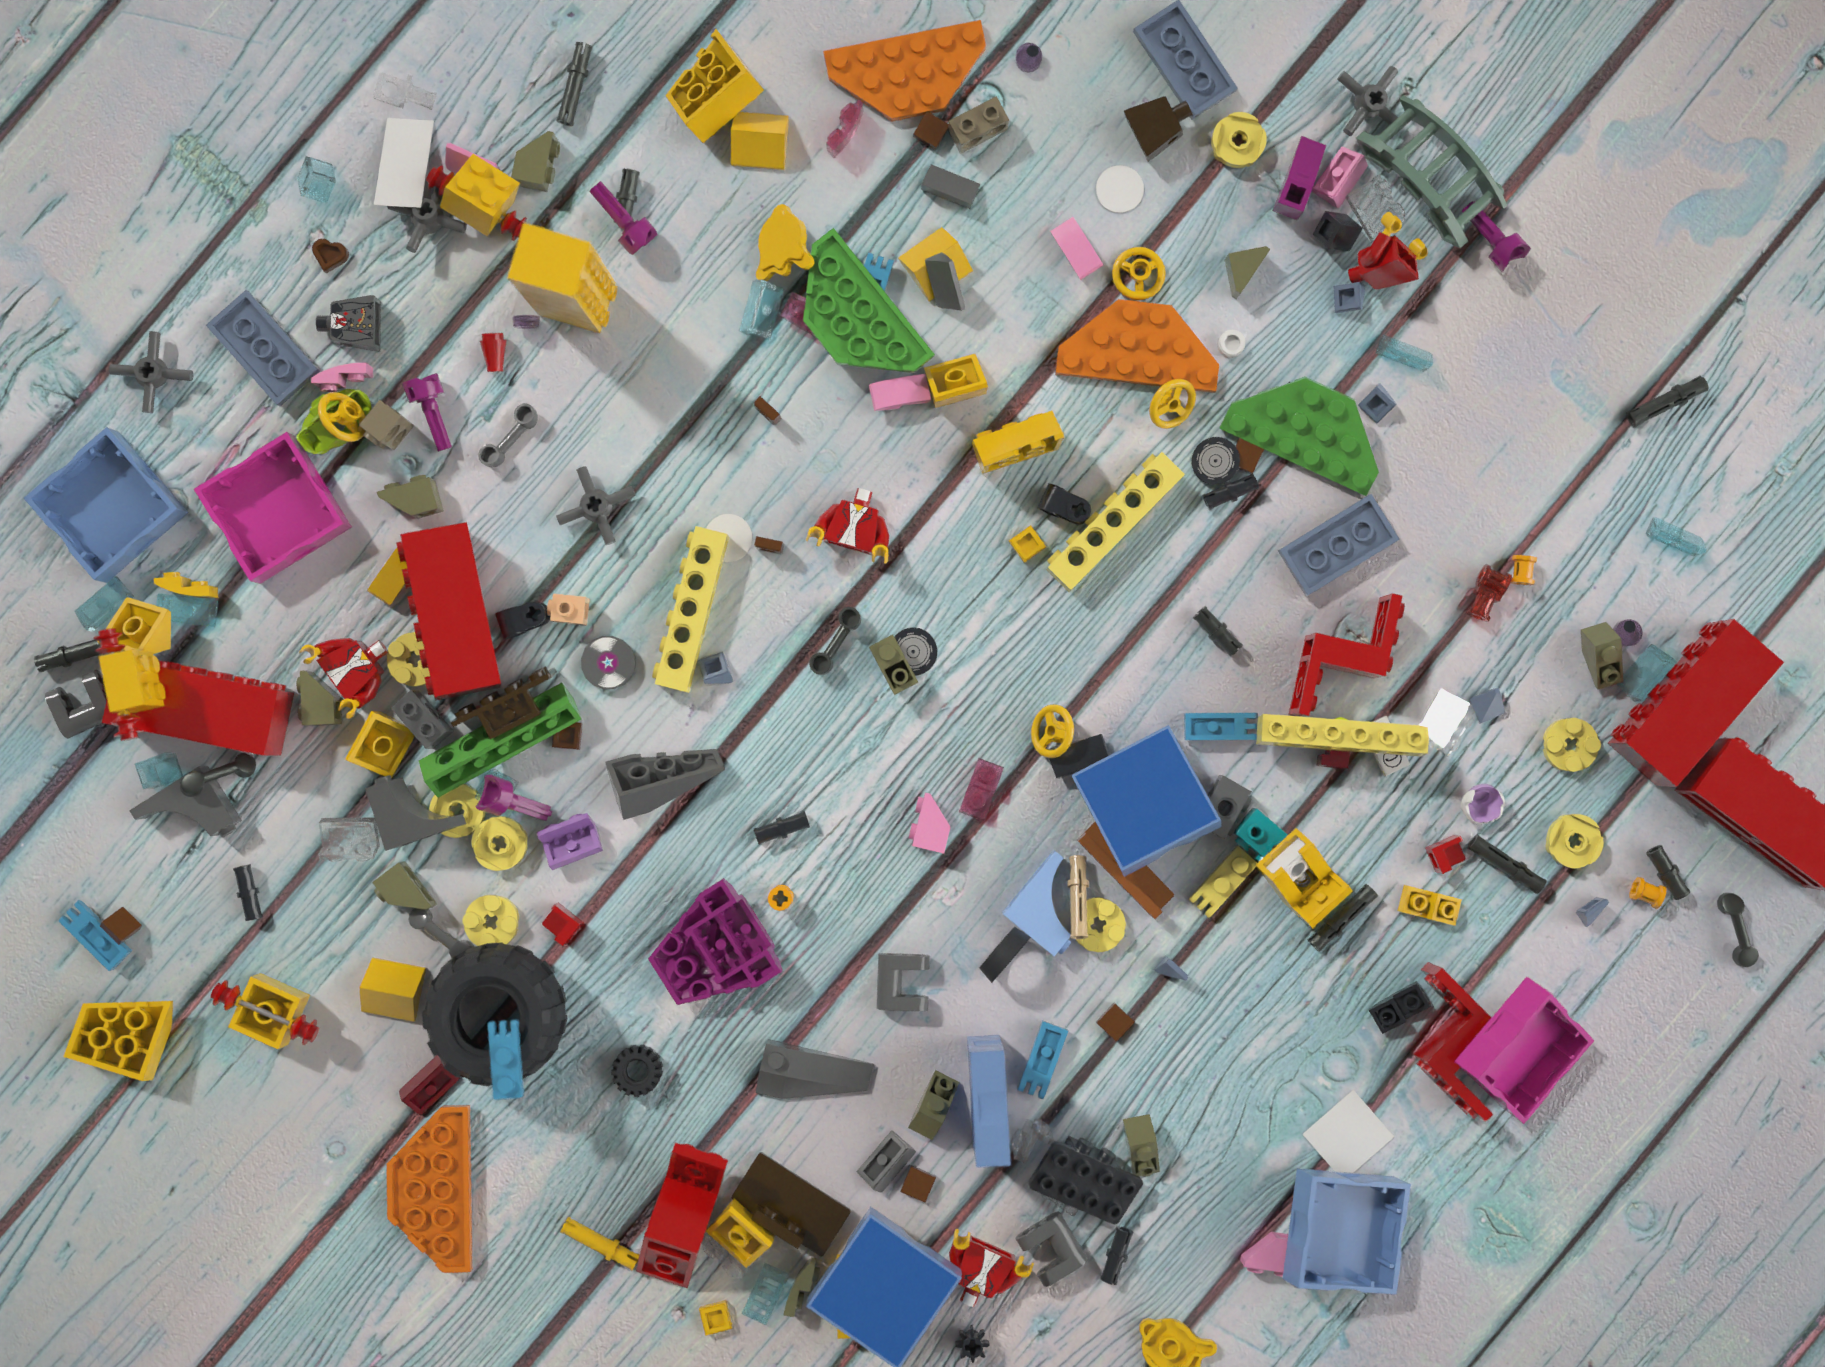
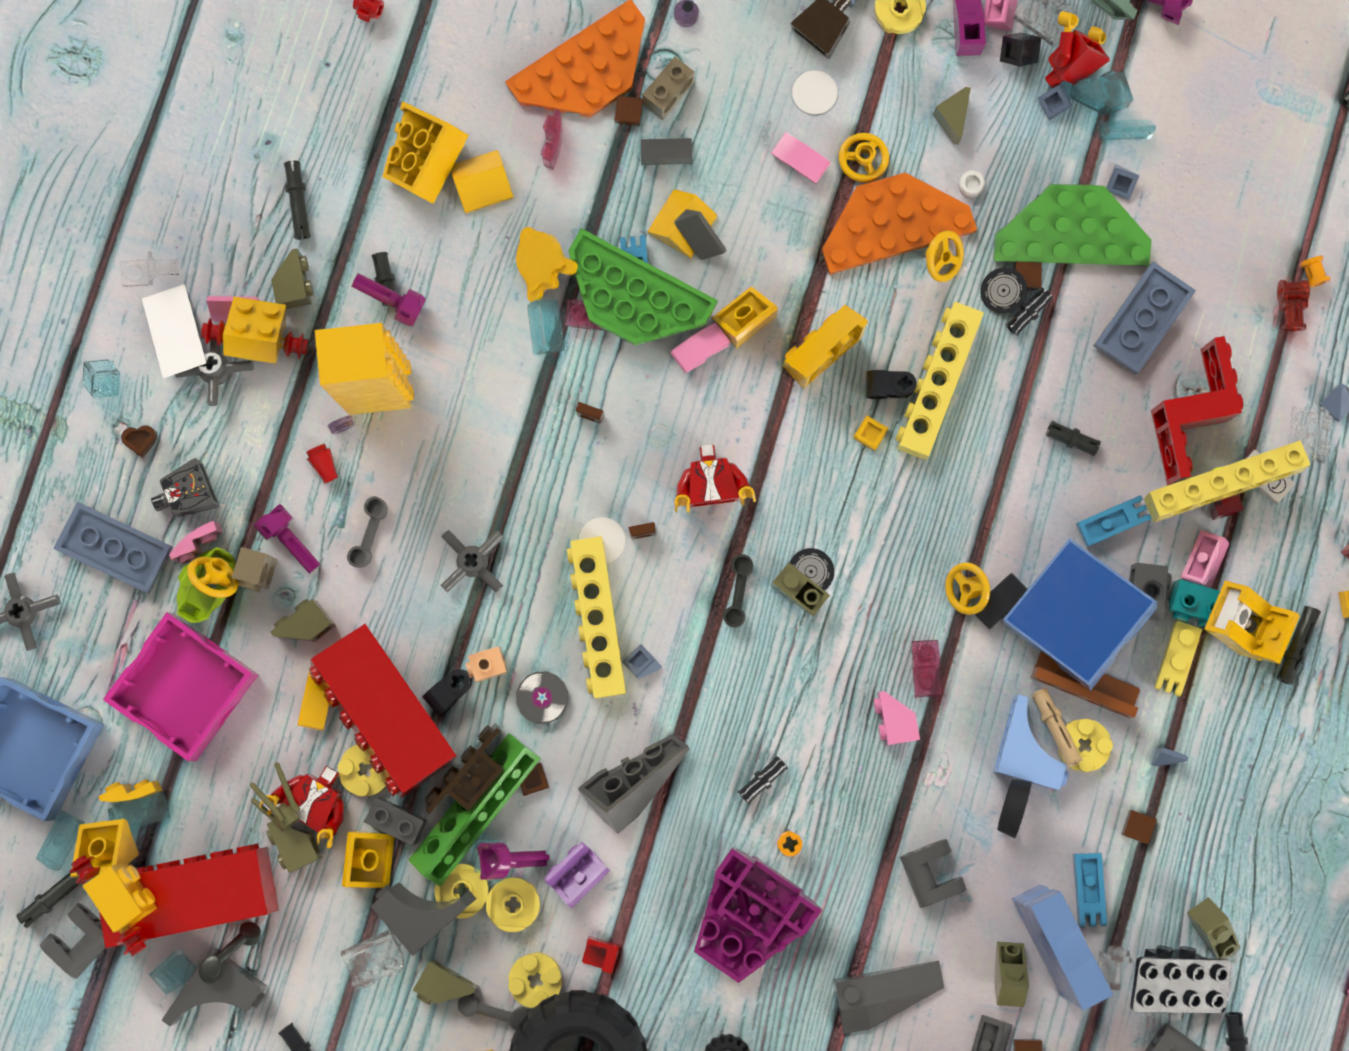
camera: 20 degrees left, 5 degrees down
(317, 669) = (283, 815): none -> olive plant
(1291, 800) = (1205, 559): none -> bright pink slope
(1399, 310) = (1104, 94): none -> clear light blue slope

